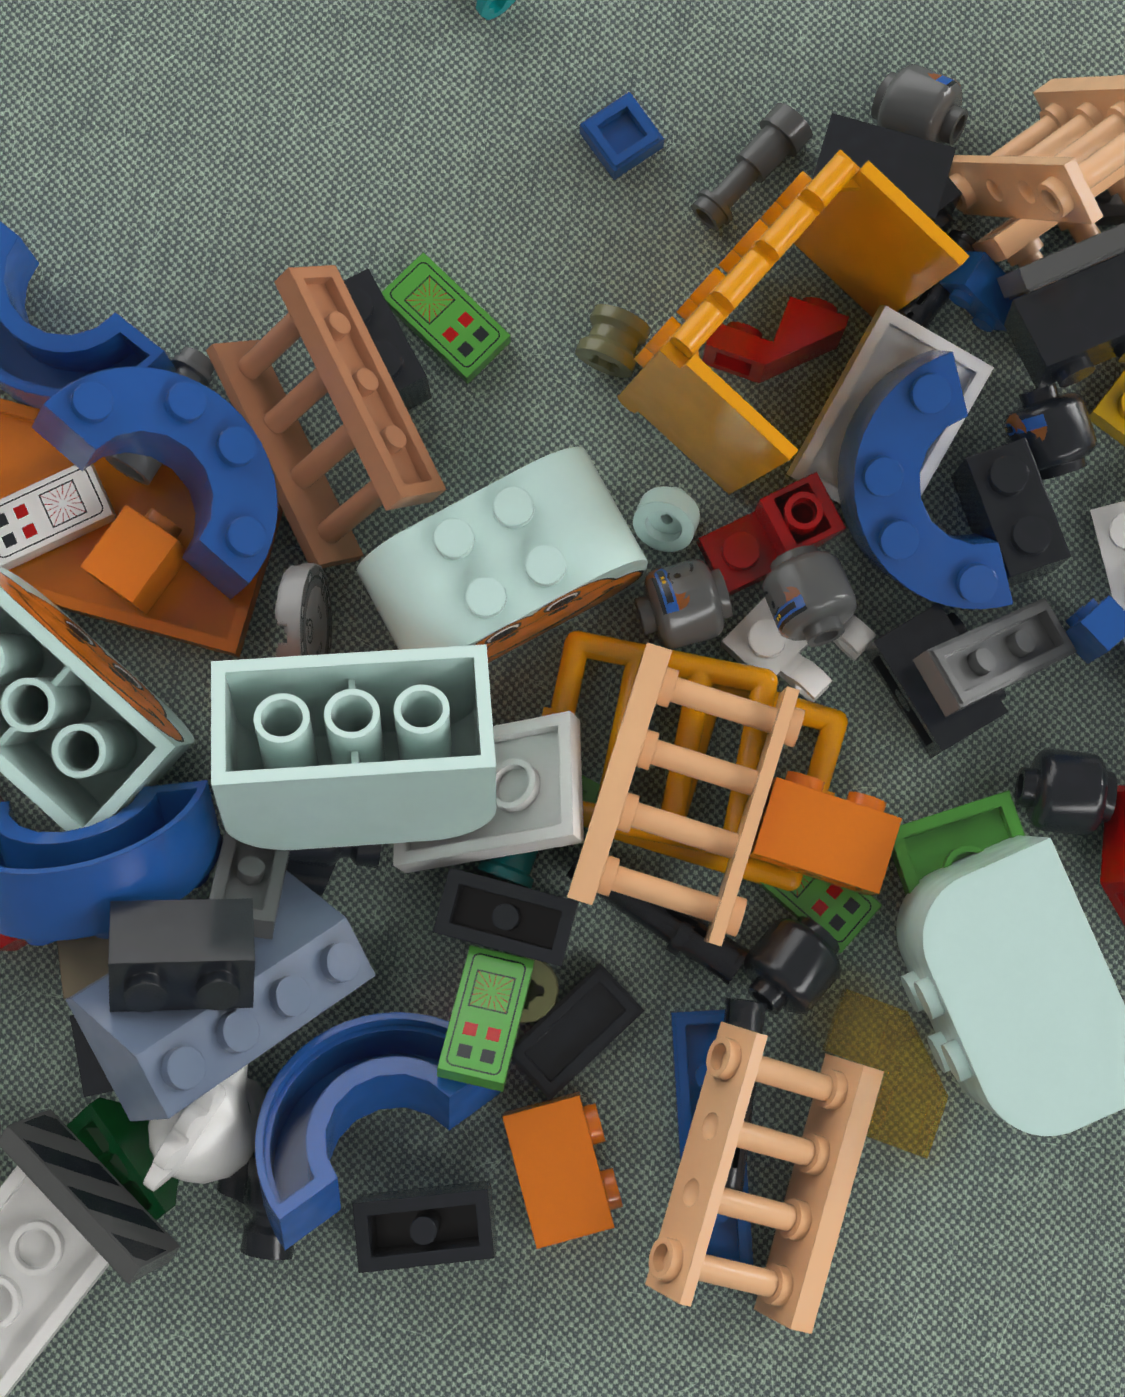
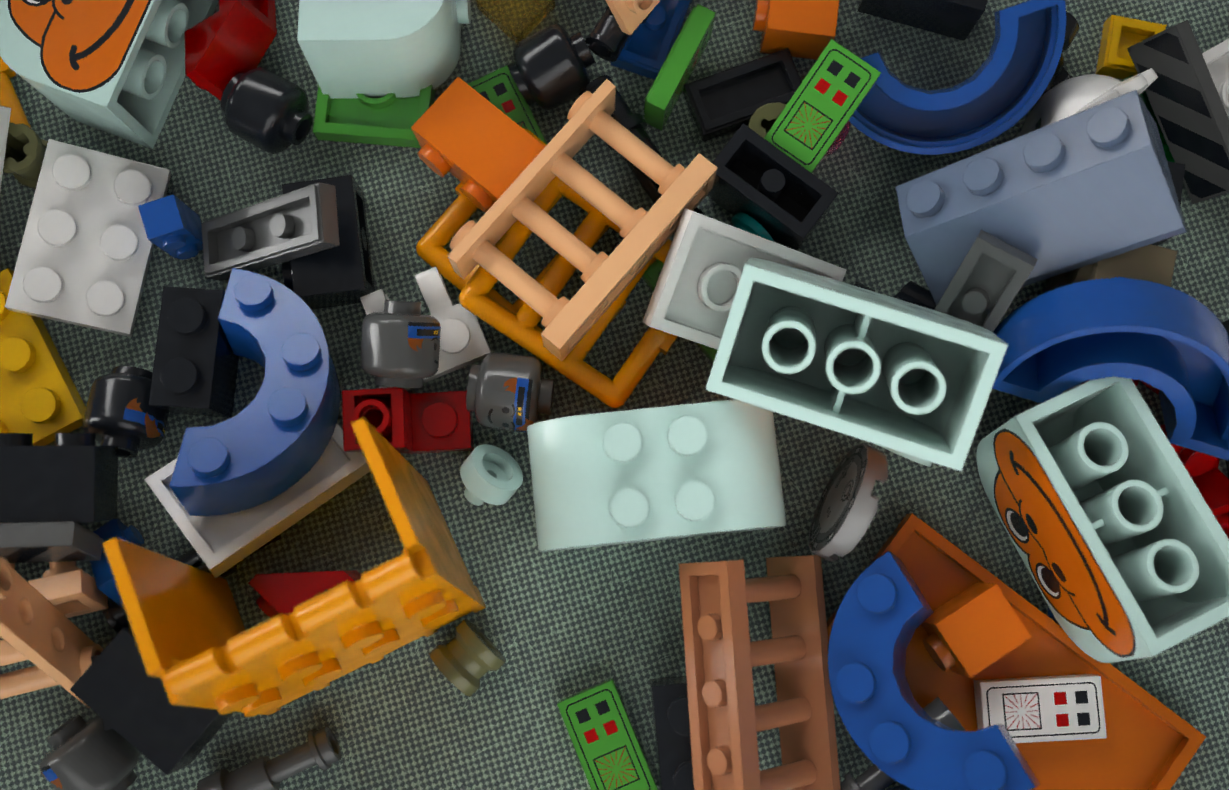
camera: 160 degrees left, 0 degrees up
(181, 955) = (1076, 227): black brick -> none
(186, 1272) = (1116, 37): none -> yellow tile
(658, 1024) = (678, 66): none -> bright green tile

